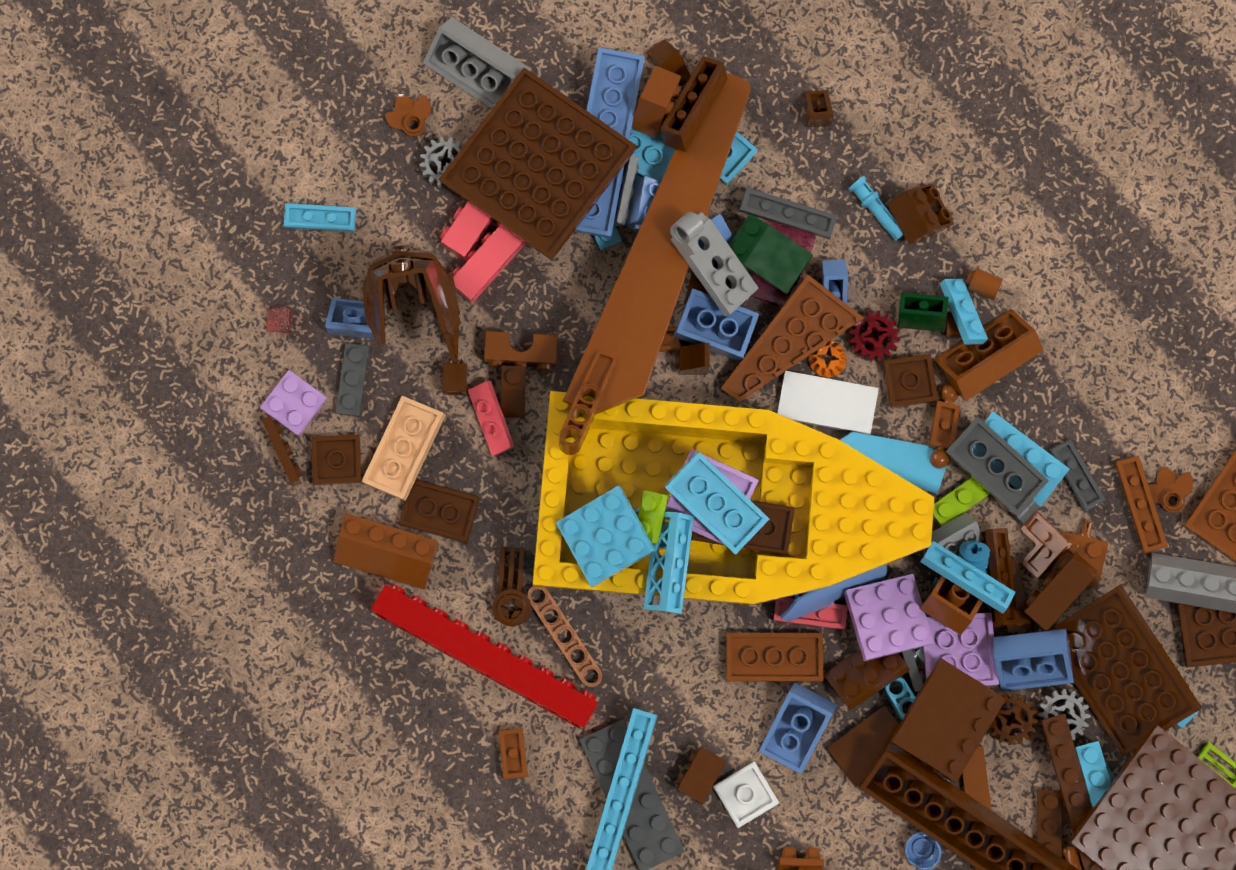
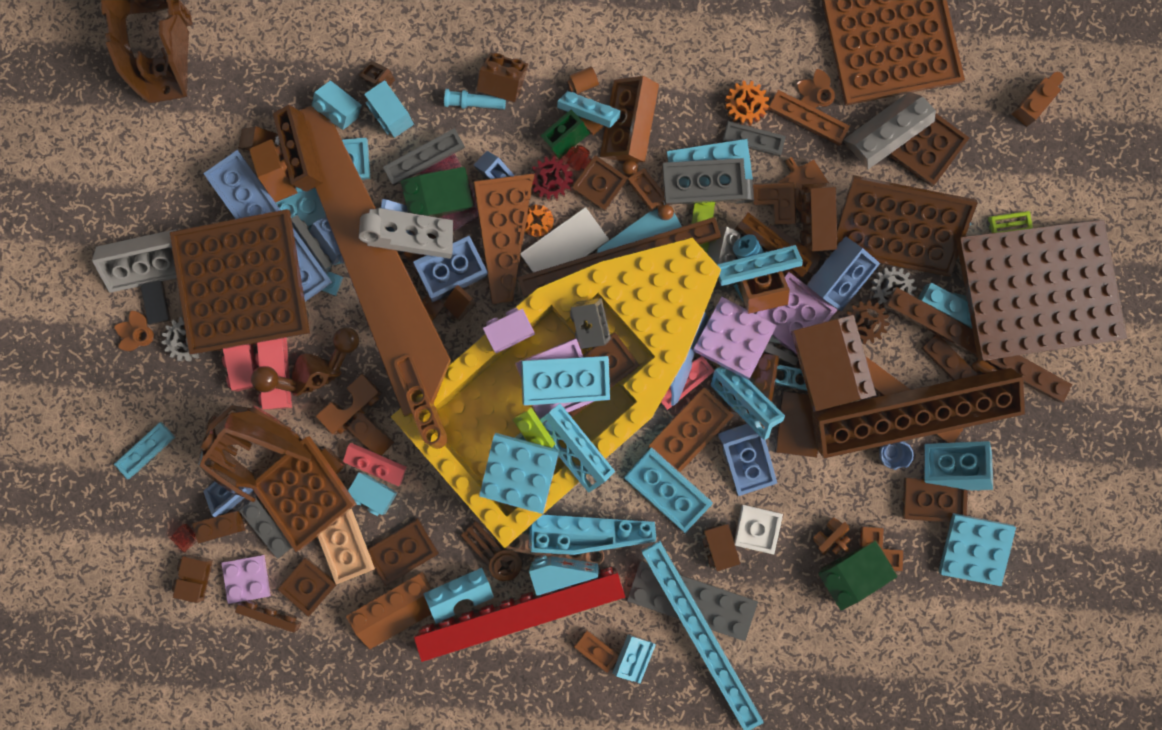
camera: 40 degrees left, 5 degrees up
(253, 358) = (192, 579): none -> reddish brown piece
(317, 339) = (219, 527): none -> reddish brown brick
(411, 383) = (303, 495): none -> dark orange plate
(438, 580) = (470, 586): none -> medium azure arch
(450, 108) = (155, 302): none -> black tile
(464, 438) = (372, 494): none -> medium azure brick
(518, 290) = (309, 370): none -> reddish brown piece
(536, 790) = (634, 658): none -> medium azure plate
(547, 652) = (557, 572): none -> medium azure slope
(604, 649) = (586, 535): none -> medium azure wedge
(706, 685) = (668, 490): none -> medium azure tile
(712, 418) = (508, 330): none -> lavender brick
(761, 99) = (336, 105): none -> medium azure brick
(782, 479) = (594, 314): none -> dark grey brick
(800, 146) = (386, 106): none -> medium azure brick
(846, 670) = (749, 398): none -> medium azure fence
(914, 341) = (578, 157): none -> clear red gear
(945, 500) = (701, 232): none -> reddish brown plate
(1109, 445) = (738, 105): none -> orange gear

